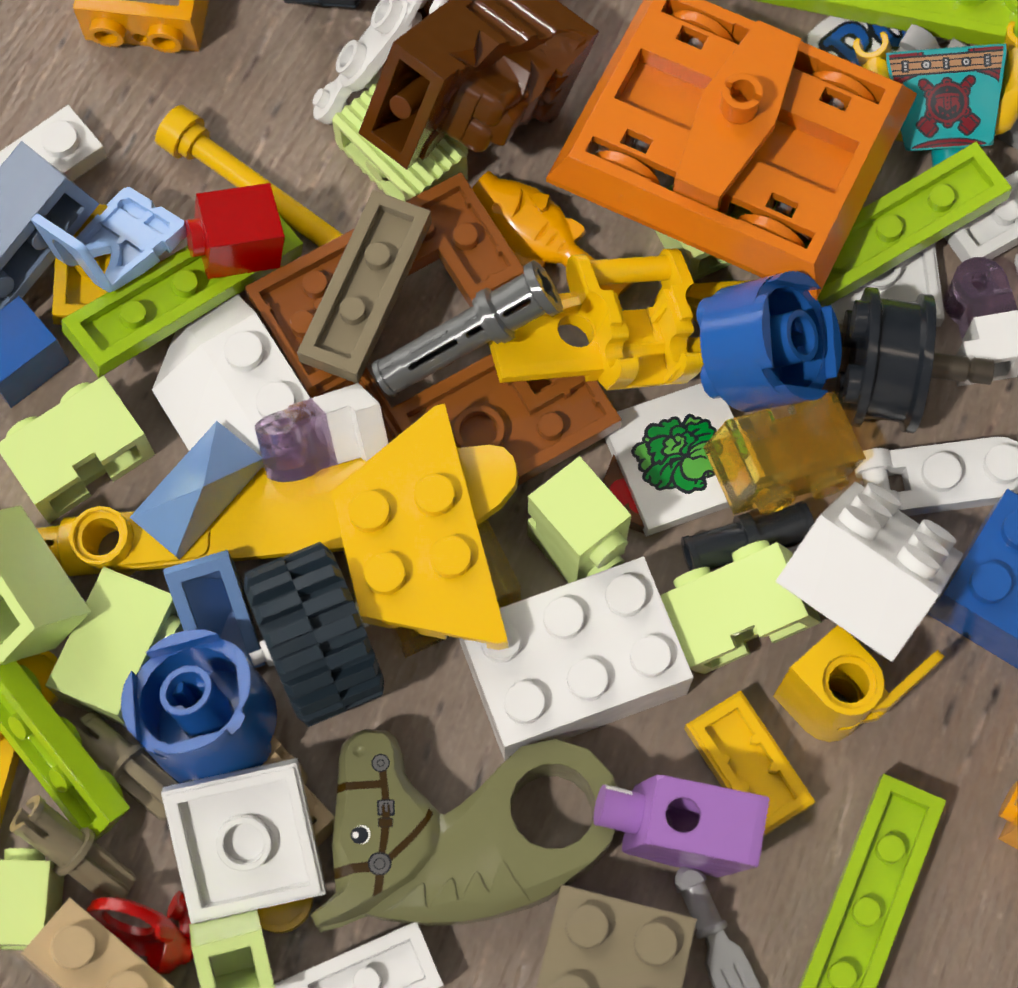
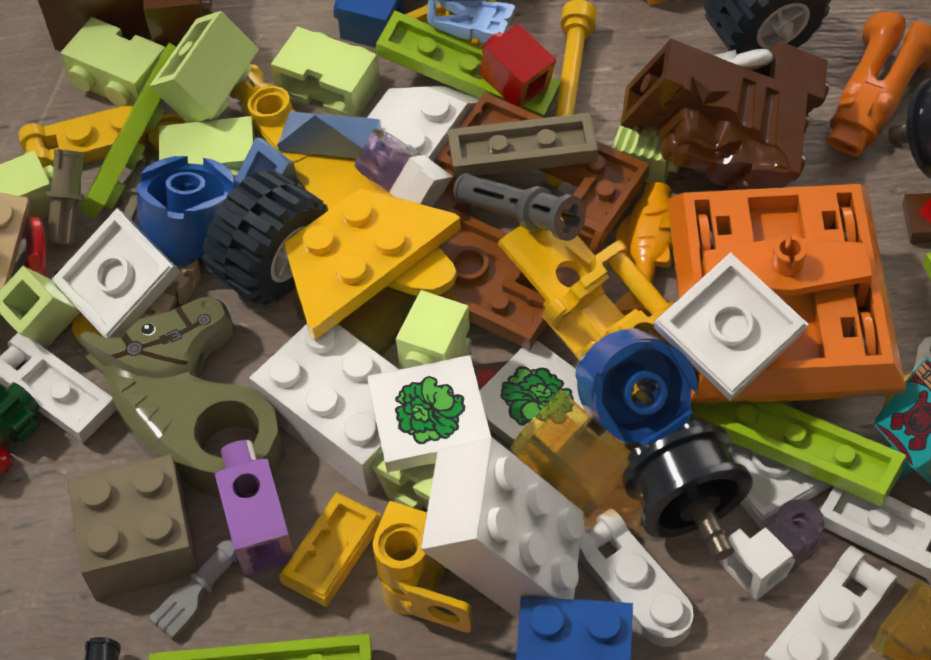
camera: 65 degrees right, 15 degrees down
(687, 570) = (426, 411): none -> white tile
(785, 206) = (730, 326): none -> white tile

